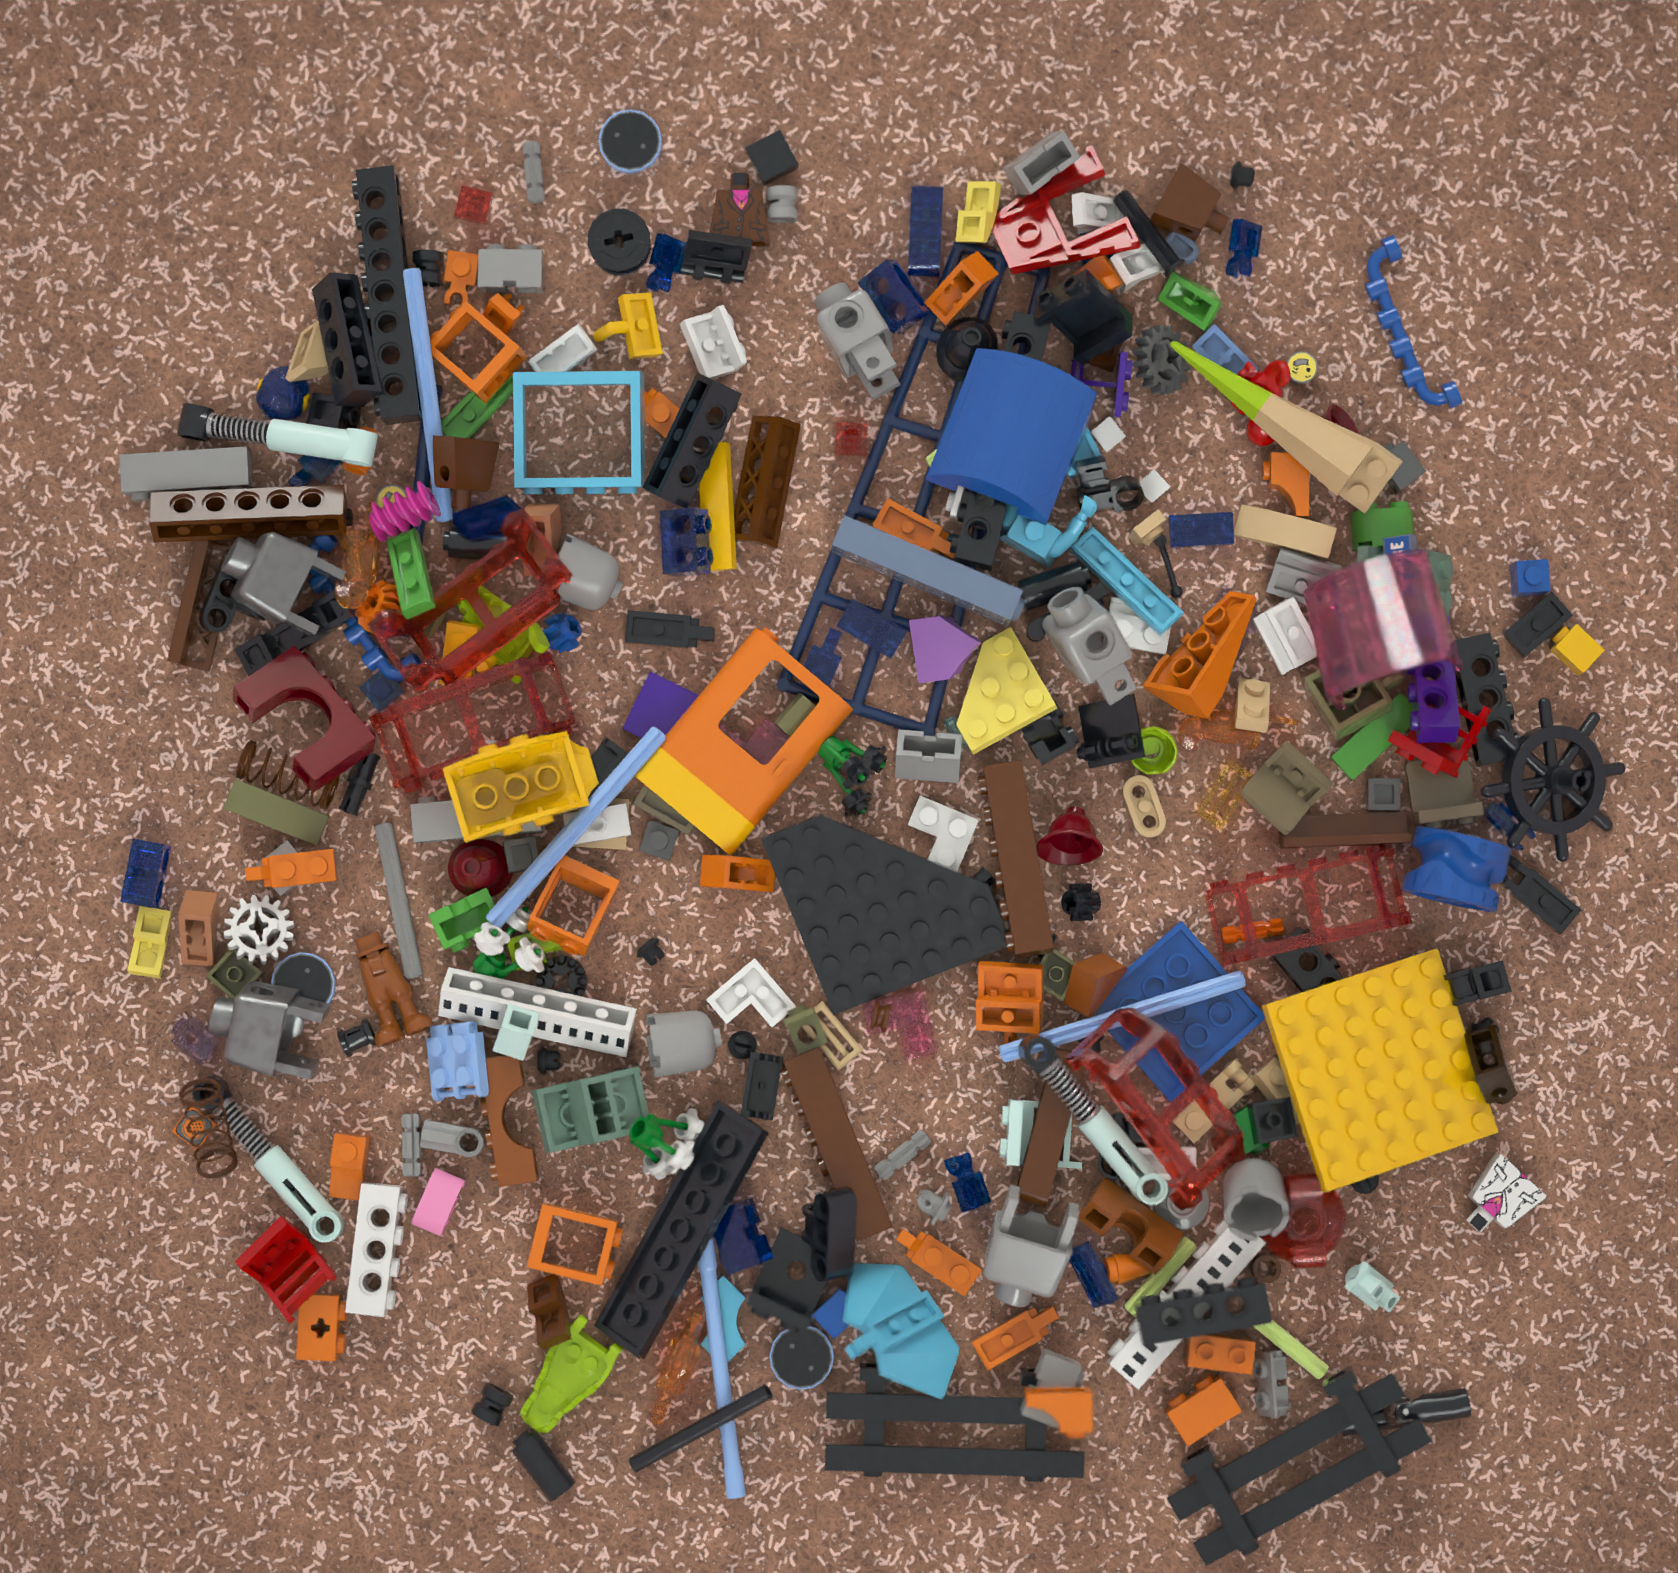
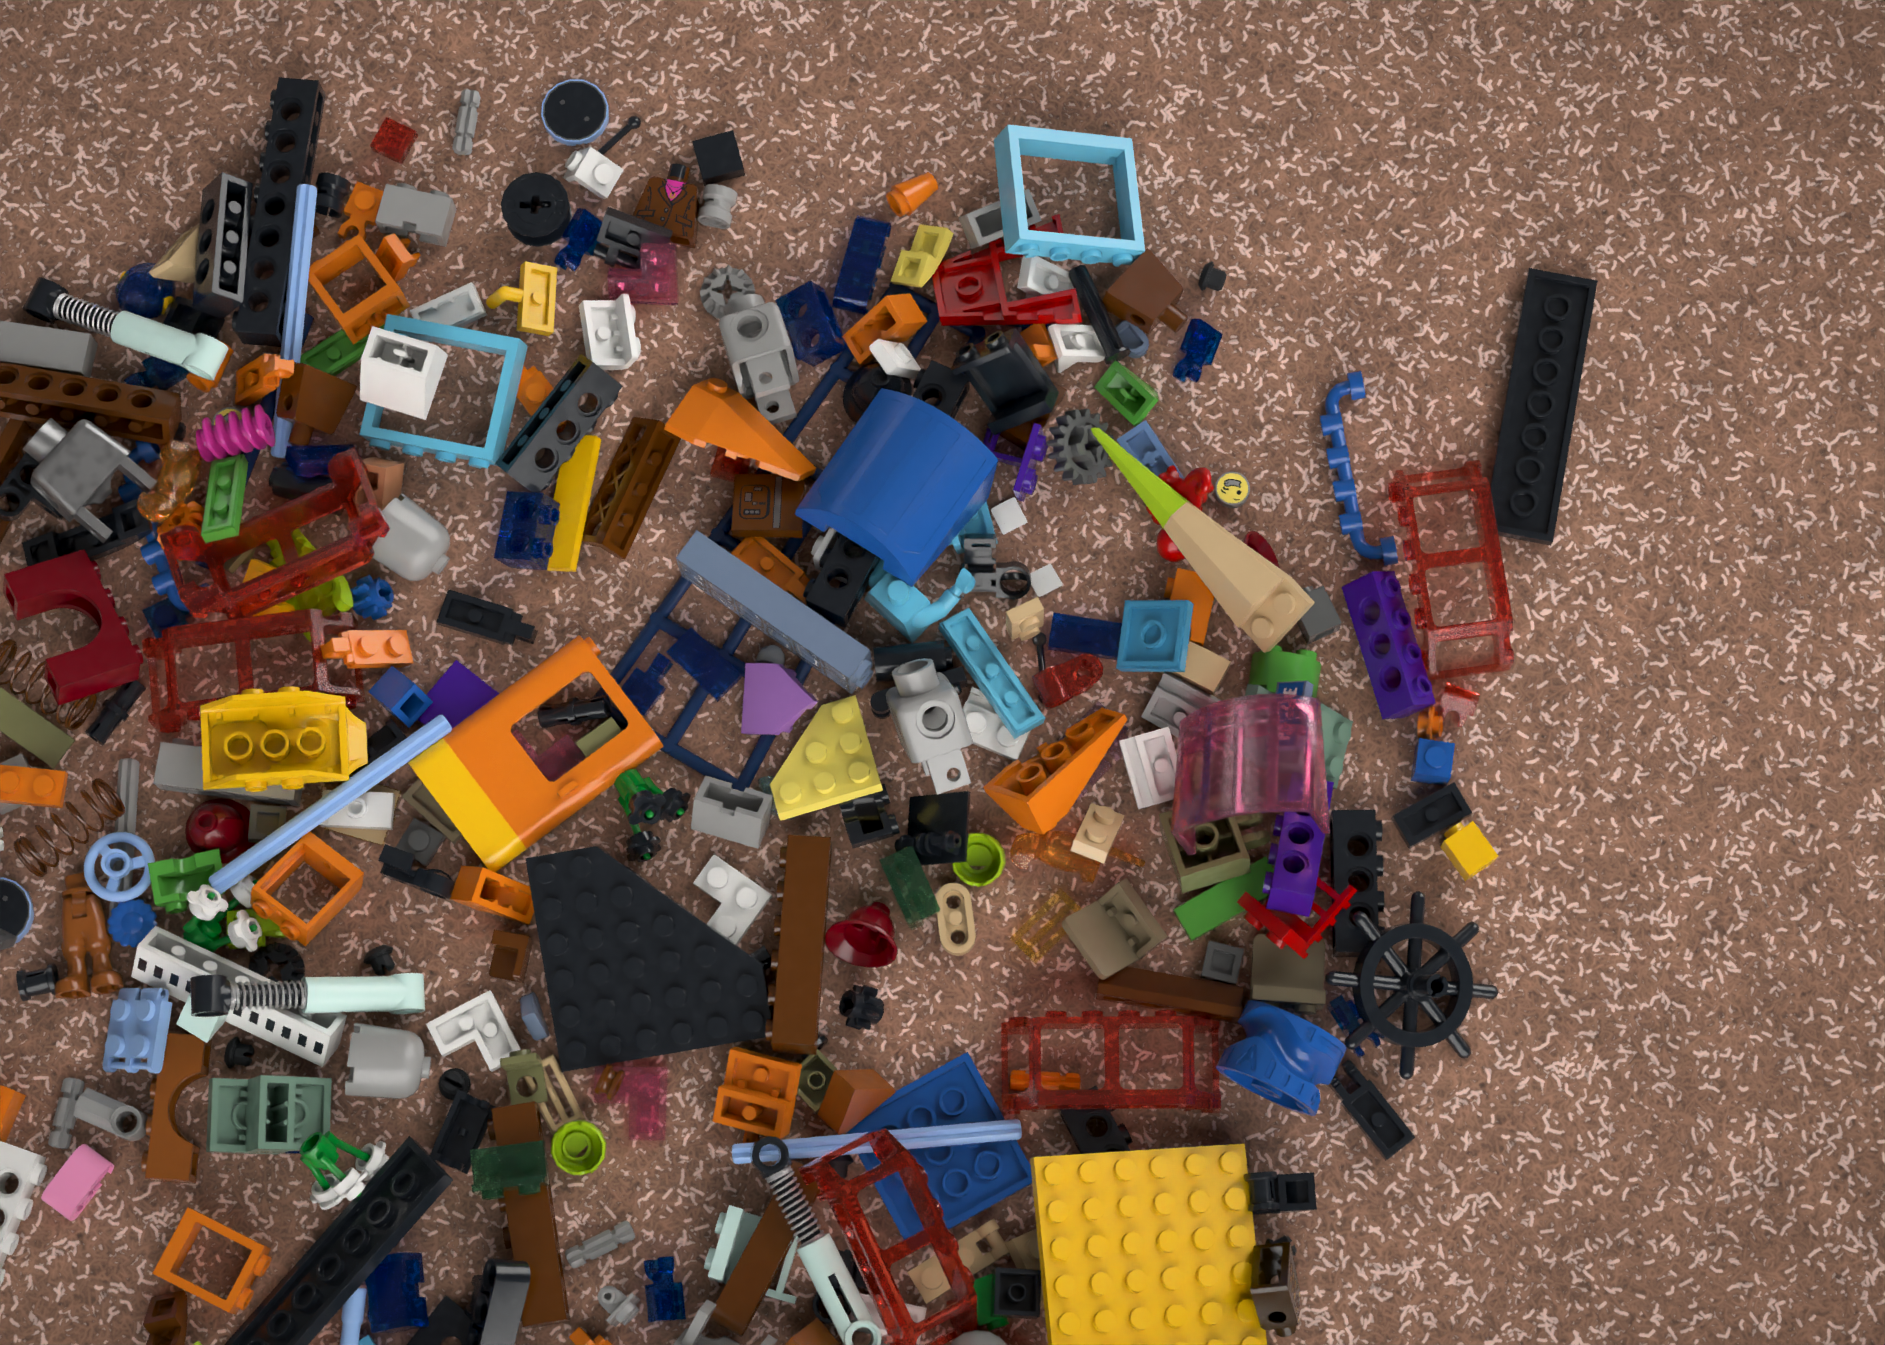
camera: 15 degrees right, 10 degrees down
(387, 873) = (117, 810): none -> reddish brown piece
(400, 945) = (109, 857): none -> light blue piece
(412, 454) = (261, 377): none -> orange hinge
(426, 968) = (131, 922): none -> blue piece
(541, 426) = (400, 372): none -> white slope
(574, 680) = (370, 648): none -> orange hinge
(604, 1000) = (393, 994): none -> piece
(610, 716) = (400, 696): none -> blue brick
(652, 869) = (398, 866): none -> black piece
(656, 182) = (633, 123): none -> black hinge
(660, 195) = (592, 171): none -> white bracket
(742, 290) = (653, 283): none -> clear pink plate
(763, 924) = (510, 956): none -> reddish brown panel
(768, 696) = (574, 711): none -> black pin
(797, 972) = (533, 1016): none -> sand blue tile
(799, 293) = (714, 301): none -> light grey gear
(813, 1111) = (508, 1169): none -> clear green bracket
(842, 405) = (726, 419): none -> orange wedge
(855, 1072) = (571, 1140): none -> lime hair
(896, 473) = (766, 506): none -> reddish brown tile
(928, 608) = (771, 654): none -> light grey hinge
(952, 156) = (910, 194): none -> orange cone
(979, 316) = (895, 358): none -> white plate
(1054, 146) = (1072, 146): none -> medium azure window
(1100, 788) = (910, 886): none -> clear green bracket
(1193, 575) = (1063, 682): none -> clear red piece
(1264, 518) = (1154, 636): none -> dark azure tile
(1456, 476) = (1388, 644): none -> dark purple brick
(1520, 544) = (1429, 724): none -> orange plate
(1540, 517) = (1459, 700): none -> clear red tile
(1544, 383) = (1488, 553): none -> clear red windscreen
(1558, 232) = (1541, 404): none -> black plate

